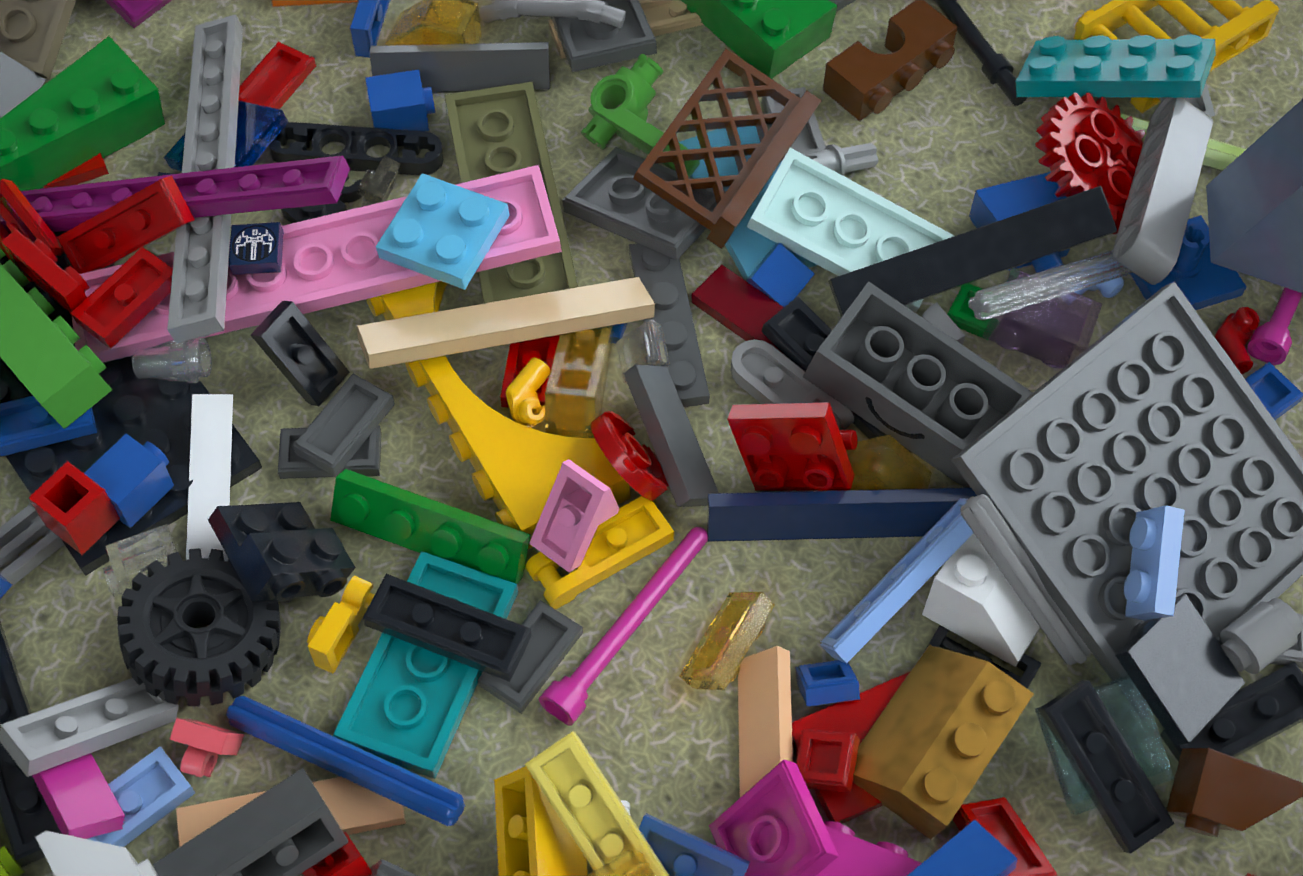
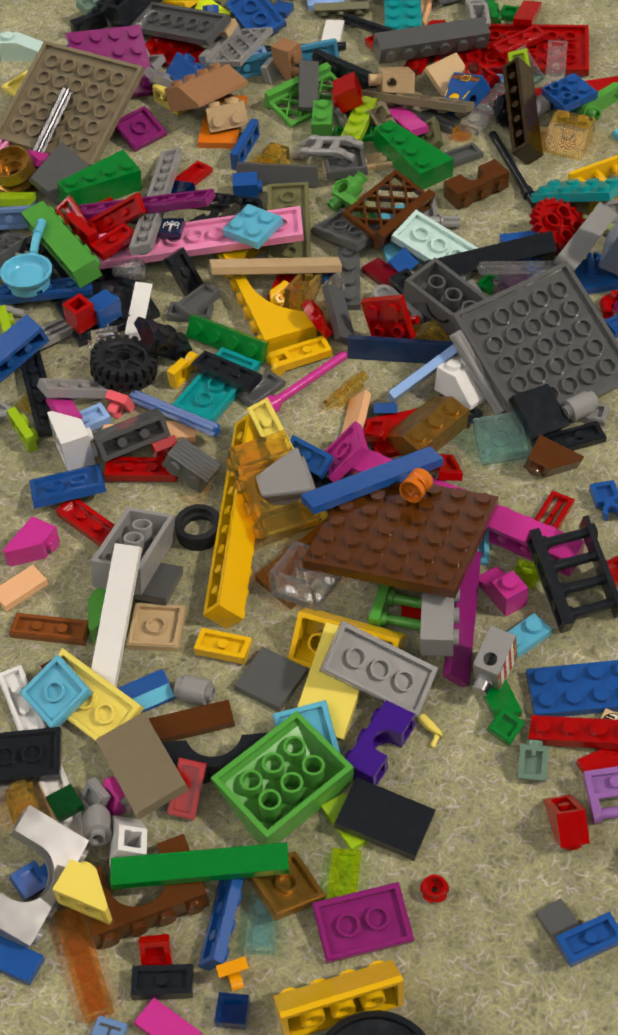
camera: 15 degrees right, 10 degrees down
(572, 516) = (288, 329): bright pink slope -> none
(1106, 766) = (497, 443): black tile -> none
(1154, 563) = (535, 358): light blue plate -> none

